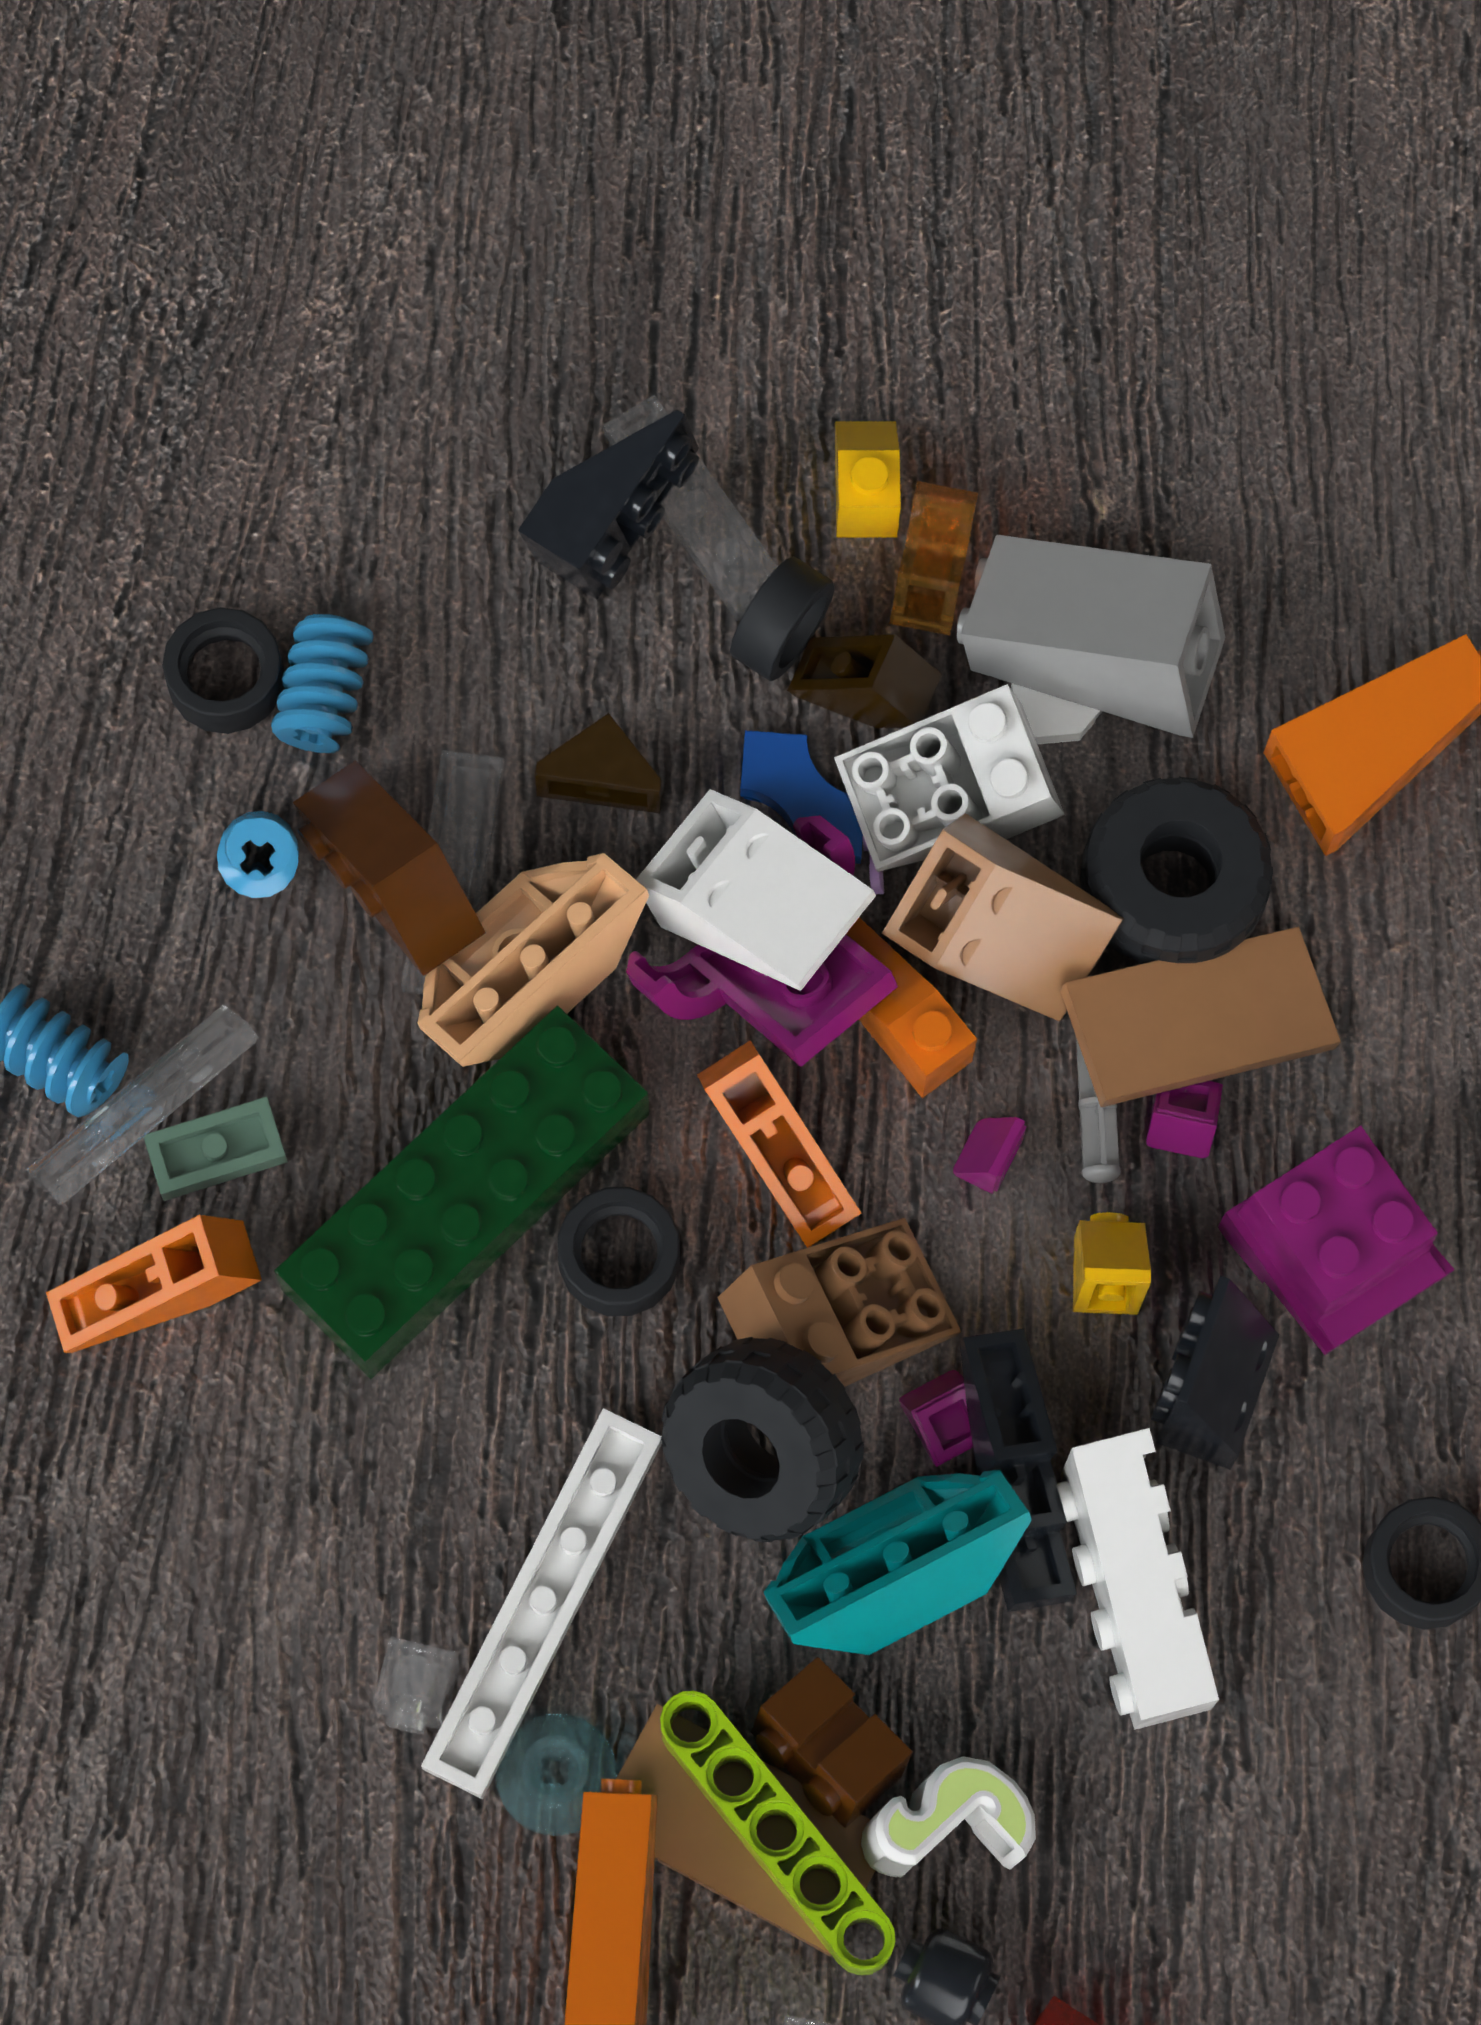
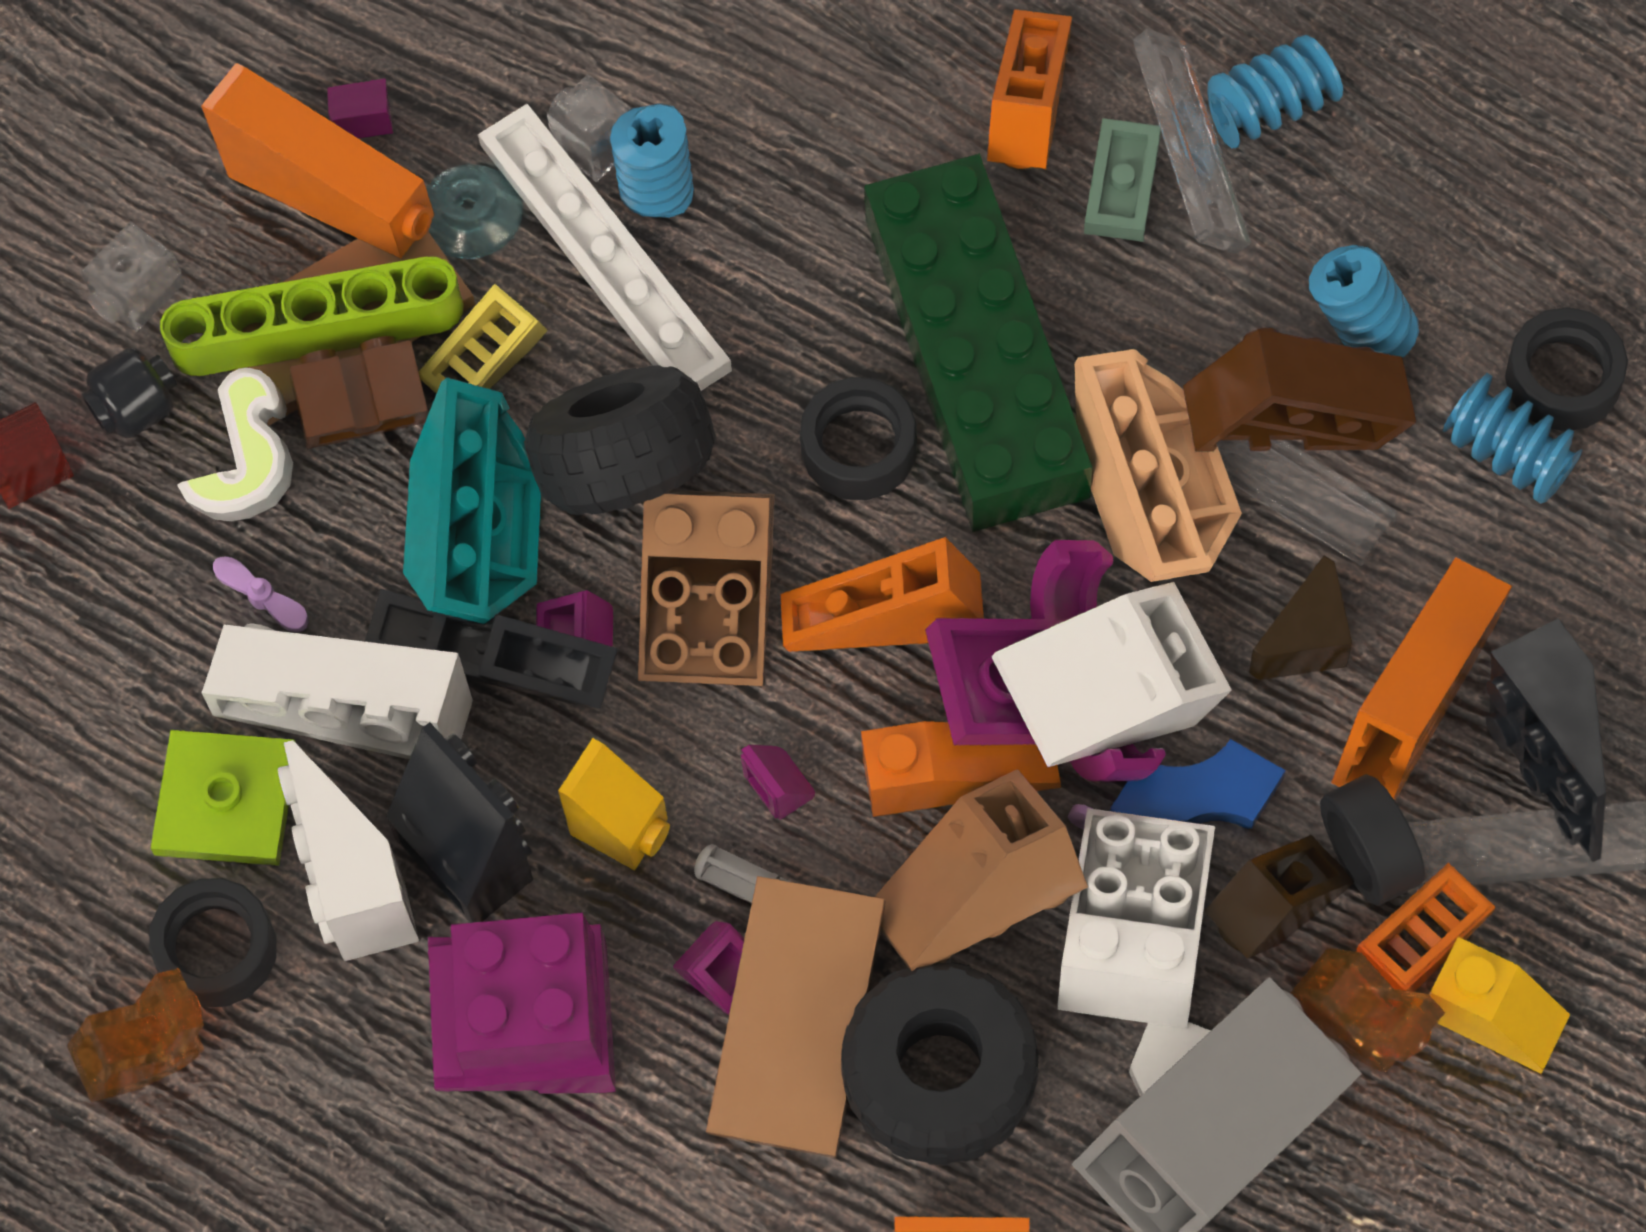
camera: 125 degrees right, 5 degrees down
(420, 1567) = (652, 161): none -> dark azure piece
(501, 1950) = (361, 108): none -> magenta slope
(606, 648) = (1422, 678): none -> orange slope
(675, 1680) = (481, 320): none -> light yellow slope
(862, 541) = (1406, 917): none -> orange slope
(1071, 1732) = (261, 594): none -> lavender piece
(1286, 1642) = (221, 799): none -> lime plate
(1315, 1439) = (349, 863): none -> white slope

